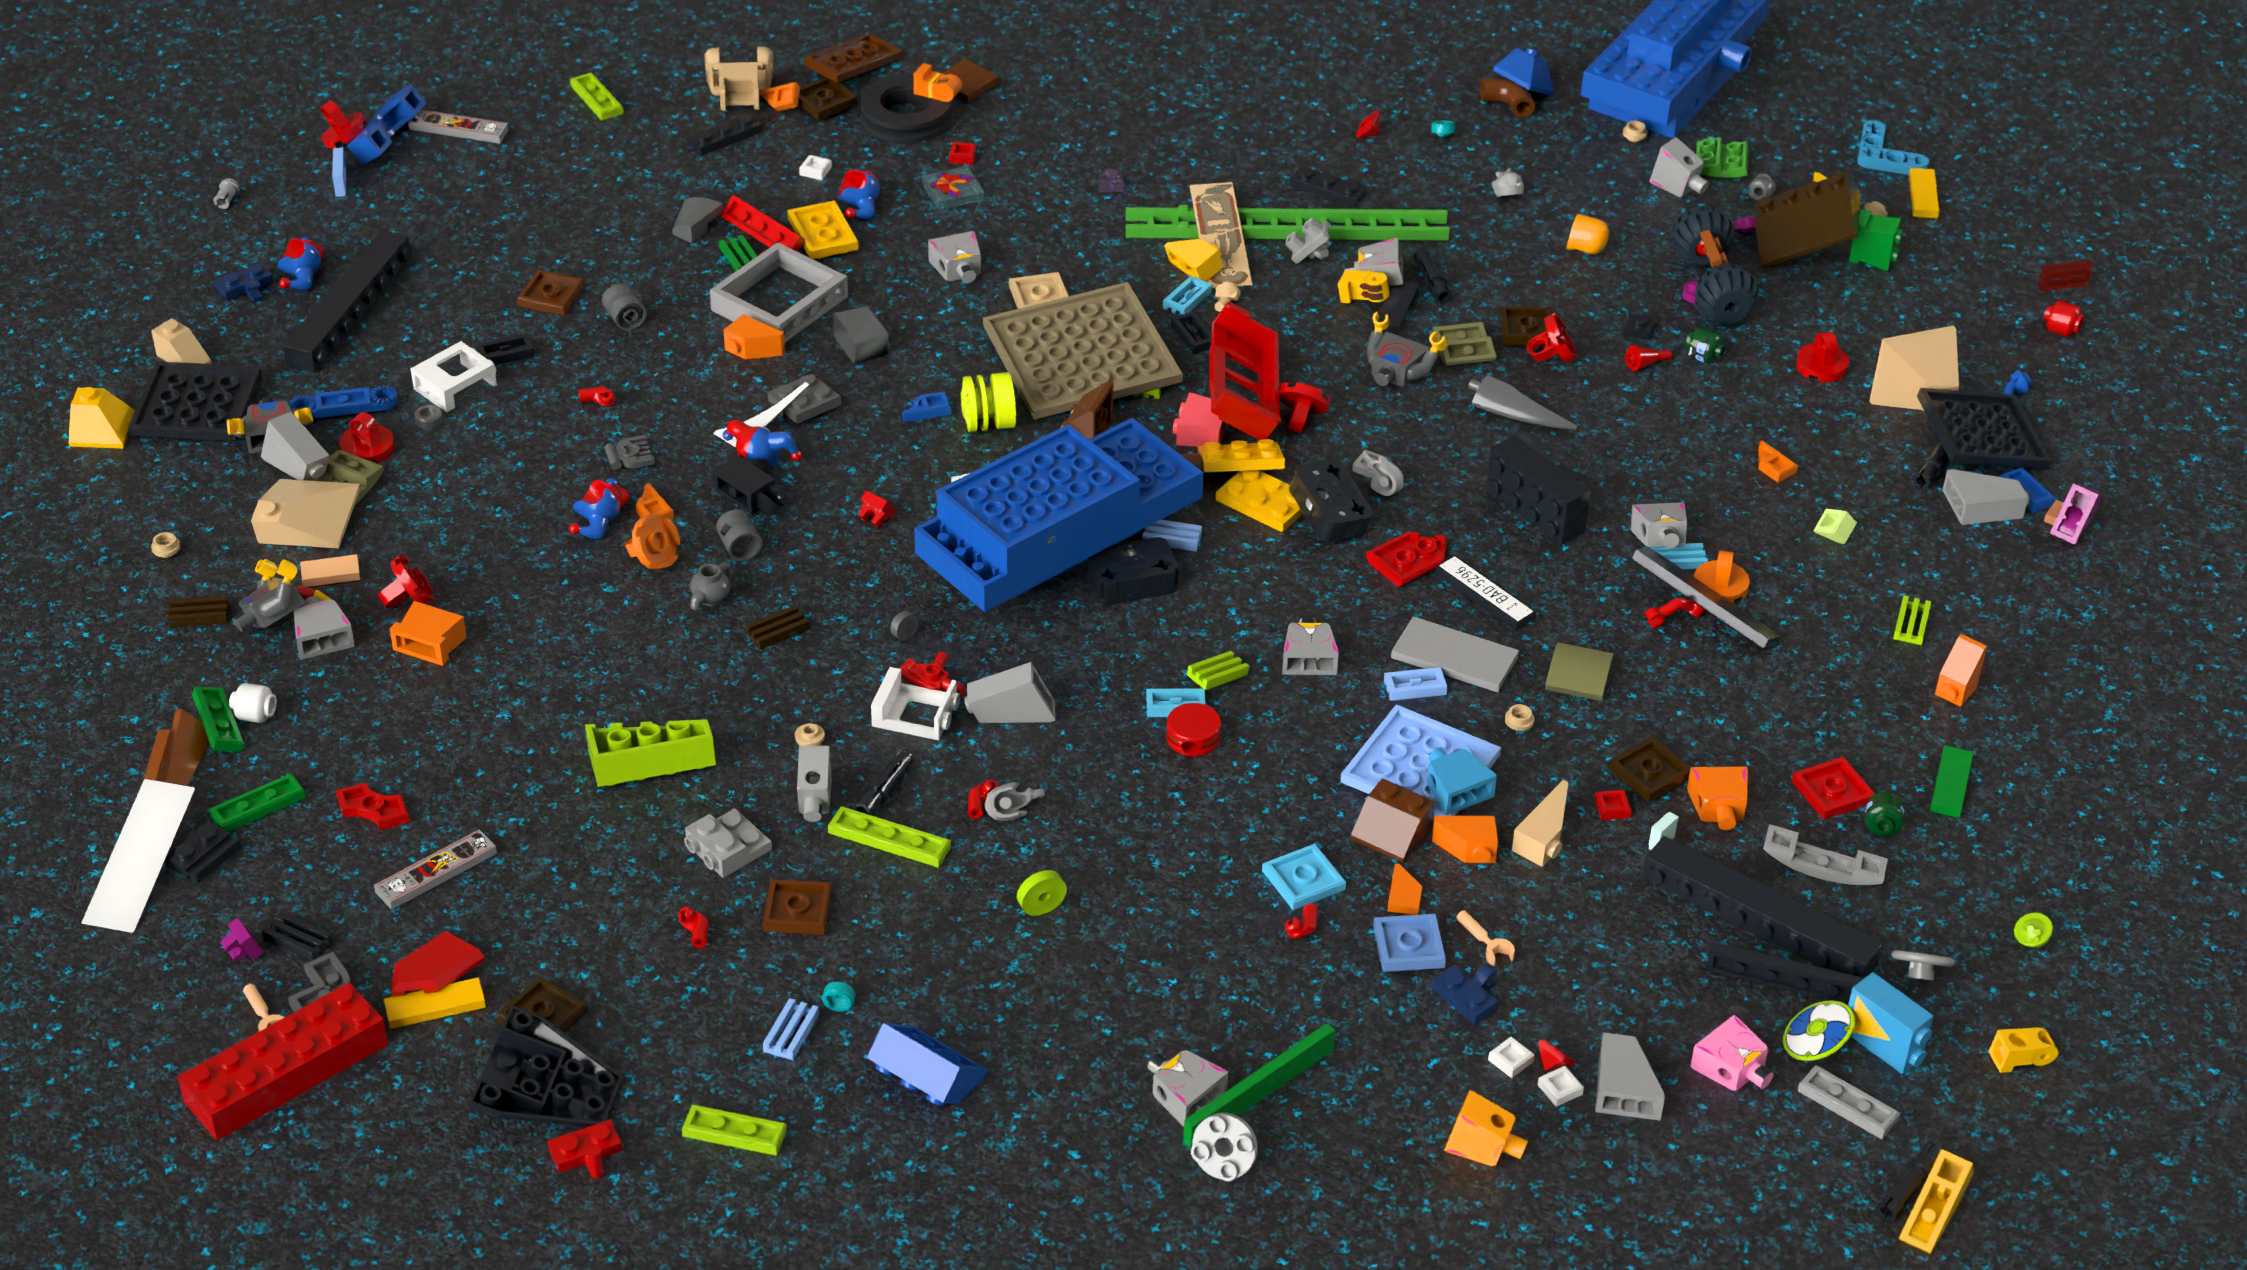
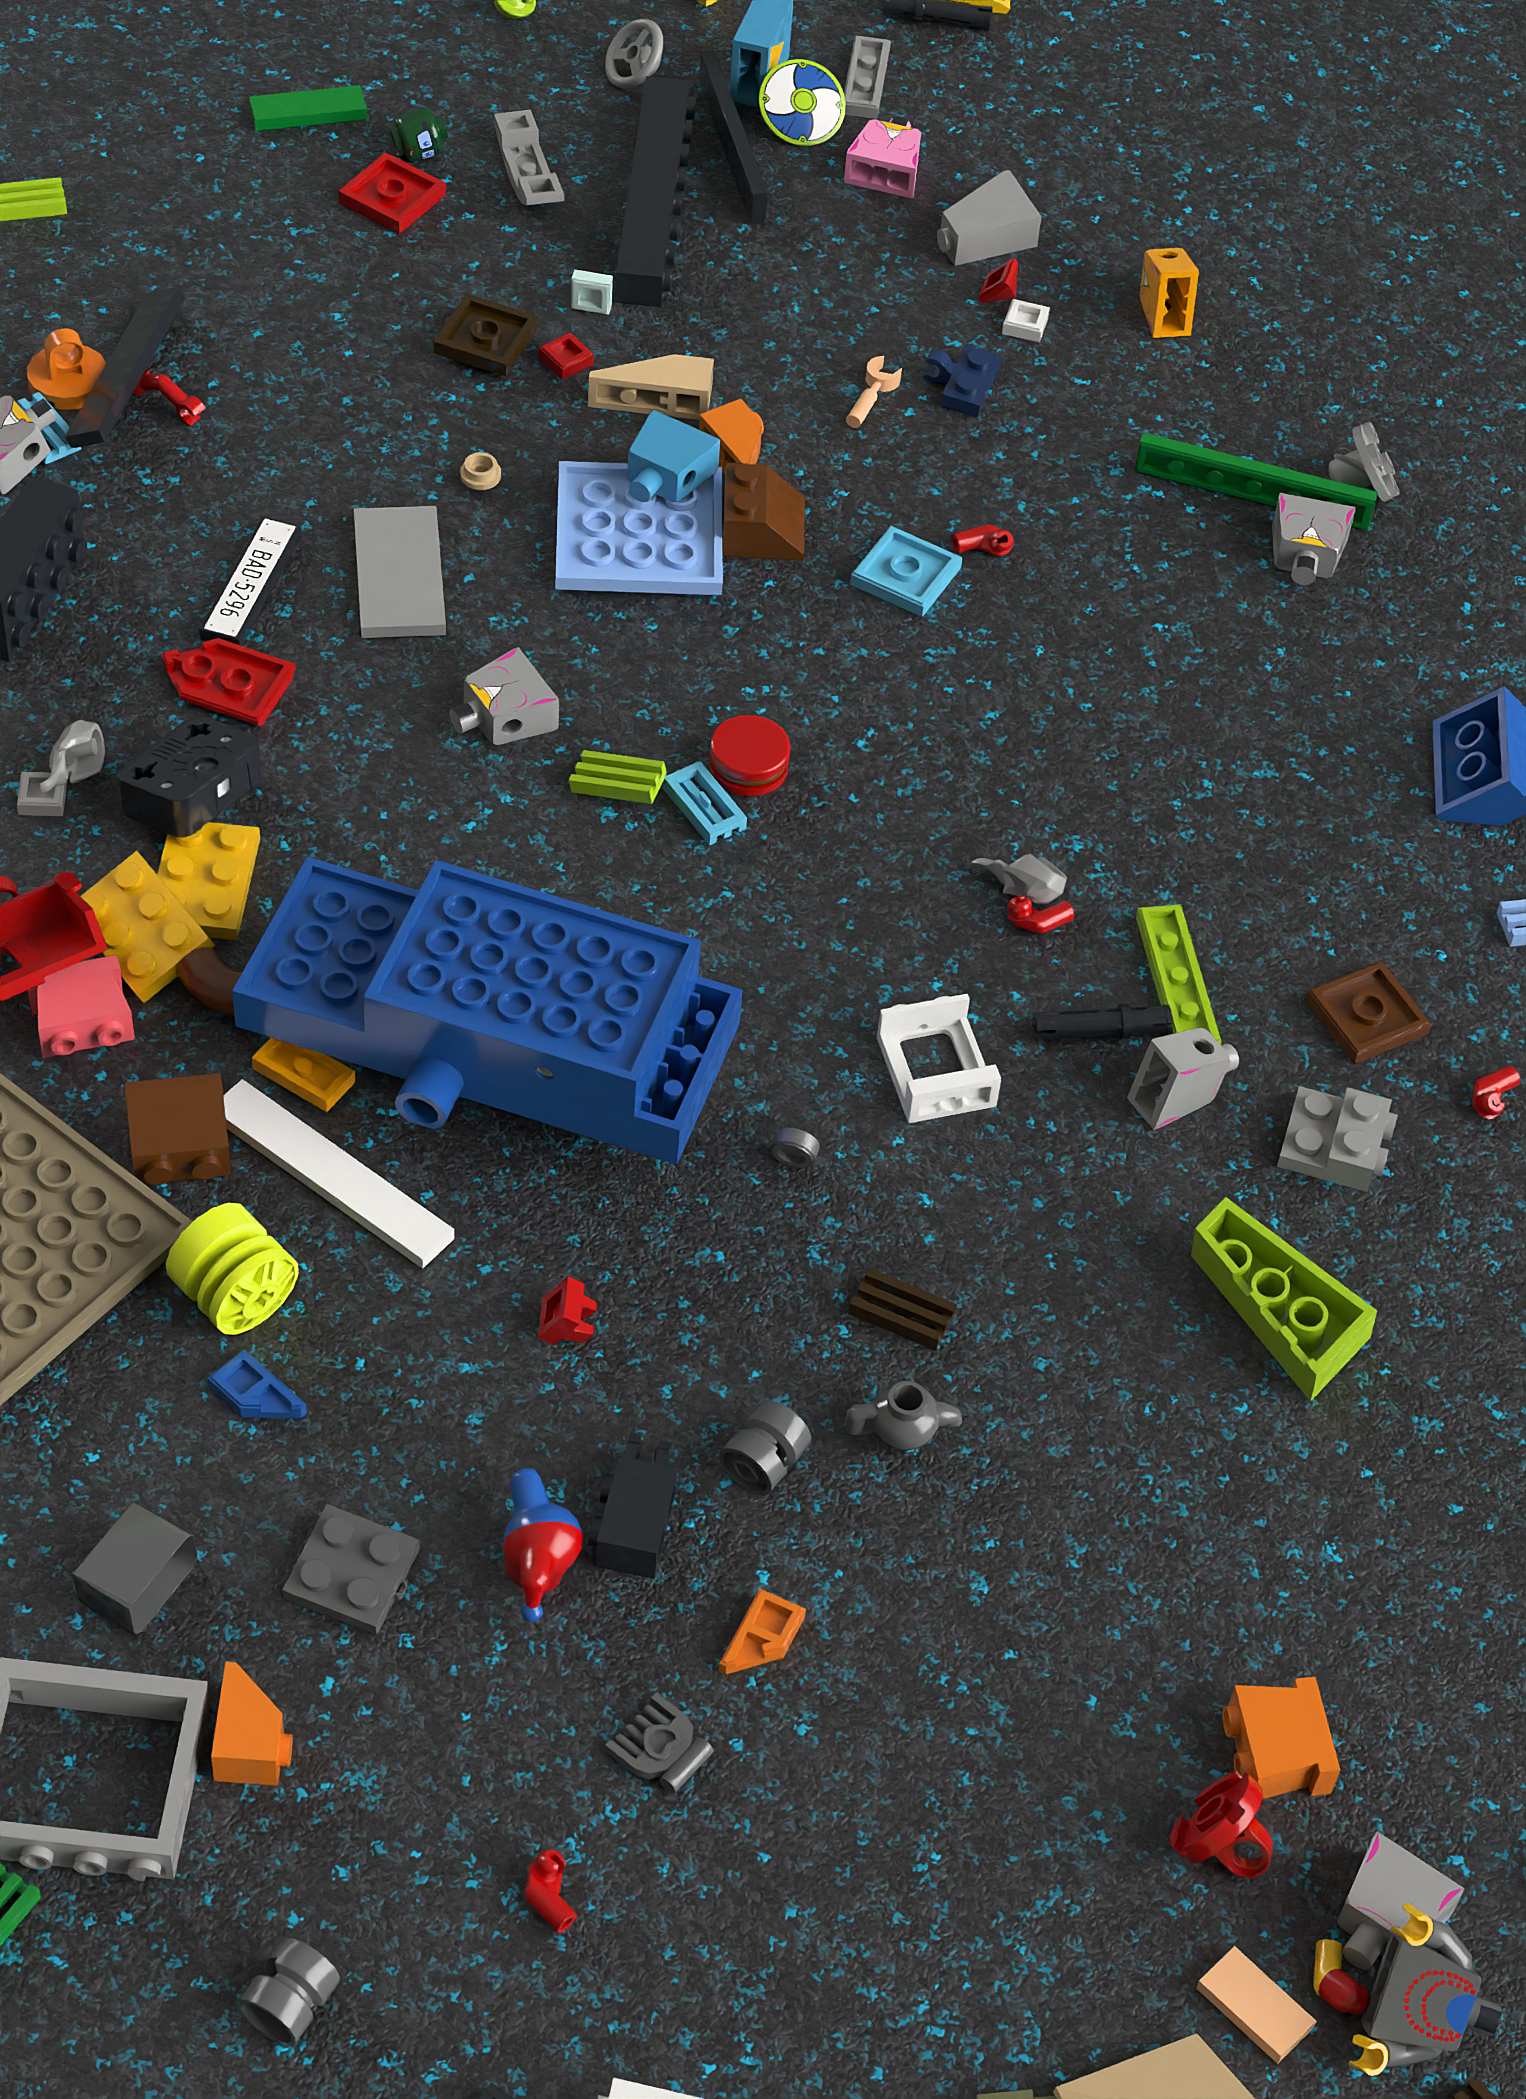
camera: 125 degrees left, 10 degrees up
(599, 507) = (833, 1688): blue piece -> none
(654, 541) = (876, 1545): orange tile -> none
(765, 417) = (489, 1608): white sticker -> none
(809, 735) = (1082, 1160): tan plate -> none
(838, 996) = (1472, 887): teal tile -> none
(930, 675) = (868, 1068): red piece -> none
(1011, 697) = (854, 951): light grey slope -> none
(1041, 892) = (1161, 764): lime piece -> none
(1404, 892) = (860, 477): orange tile -> none
(1409, 942) = (940, 441): medium blue plate -> none
(1415, 683) = (479, 592): light blue tile -> none
(1560, 1086) = (1034, 273): white tile -> none
(1579, 671) = (349, 444): olive slope -> none
(1719, 794) = (489, 262): orange torso -> none
(1961, 670) = (127, 119): slope -> none

